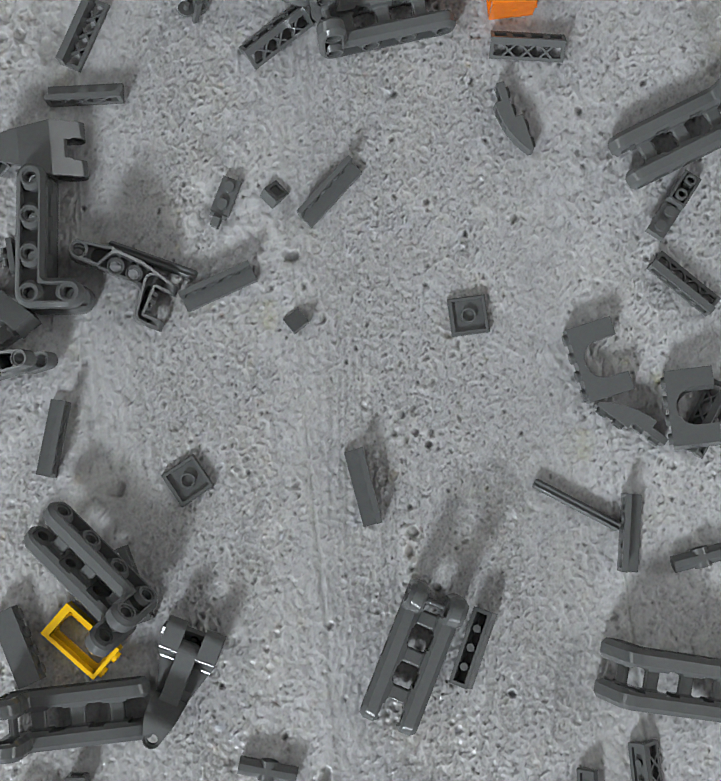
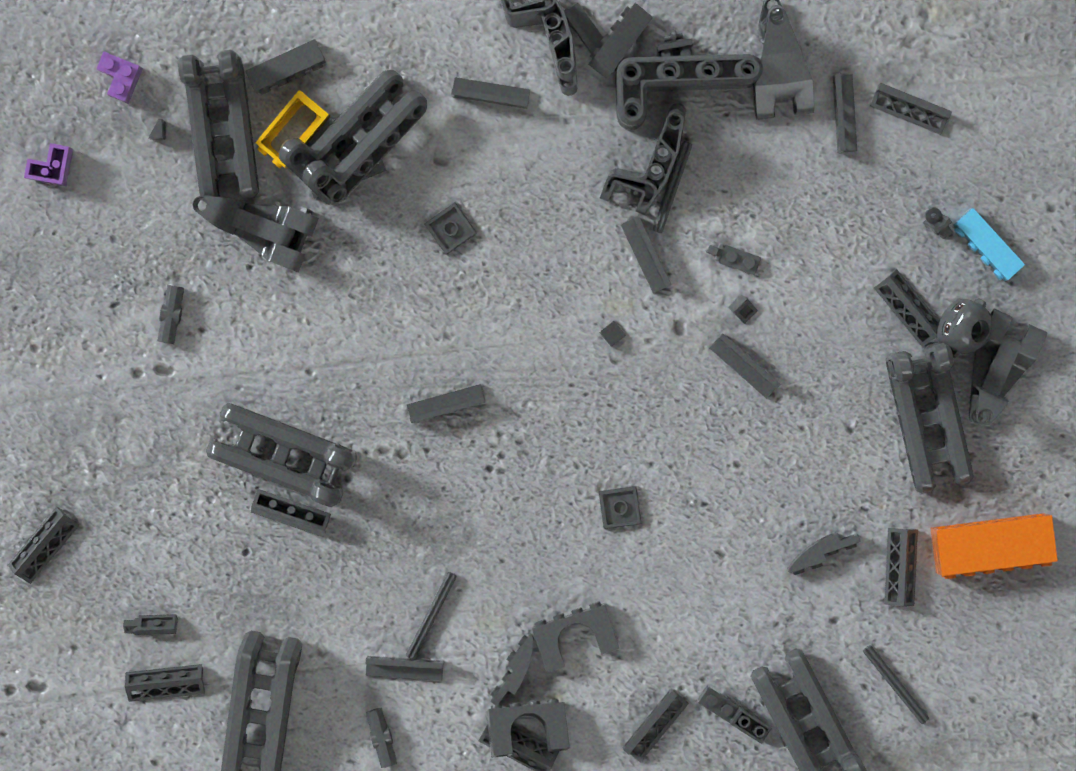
camera: 85 degrees right, 5 degrees up
(641, 52) = (896, 685): none -> dark grey axle

